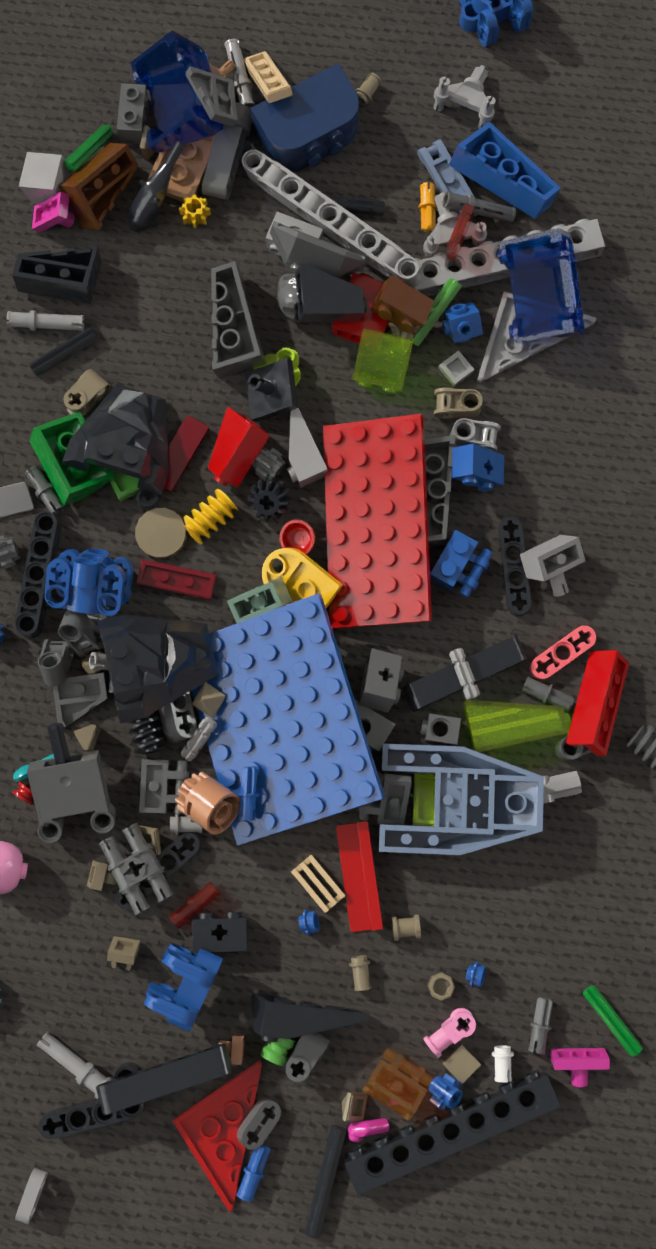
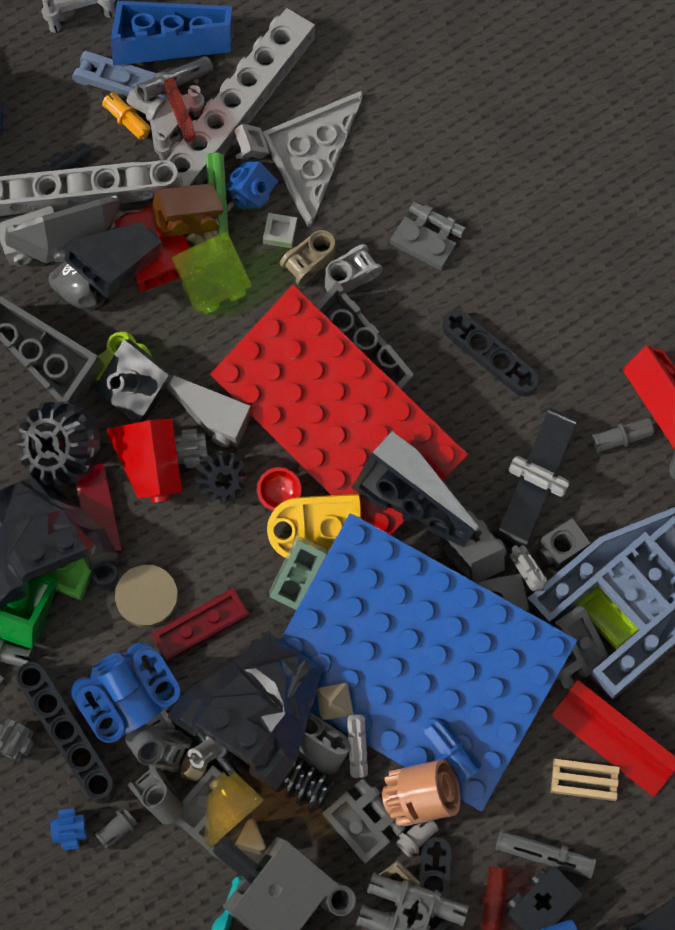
camera: 45 degrees left, 10 degrees down
(17, 659) = (116, 828): none -> dark grey pin
(88, 705) = (227, 806): none -> clear yellow slope
(196, 389) = (72, 442): none -> black gear
(209, 516) = (178, 538): yellow piece -> none
(248, 900) = (546, 854): none -> dark grey pin
(309, 922) = (611, 821): blue plate -> none
(373, 598) = (404, 481): none -> black wedge
(402, 725) = (528, 568): none -> light grey axle
(453, 561) = (435, 388): blue brick -> none
(478, 467) = (381, 292): blue brick -> none
(490, 292) = (250, 141): none -> light grey tile
(511, 724) = (615, 489): clear neon green slope -> none
(541, 457) = (424, 243): none -> dark grey plate
(543, 286) = (294, 98): clear blue windscreen -> none
(552, 560) = (519, 317): light grey brick -> none
(582, 647) = (589, 408): coral beam -> none

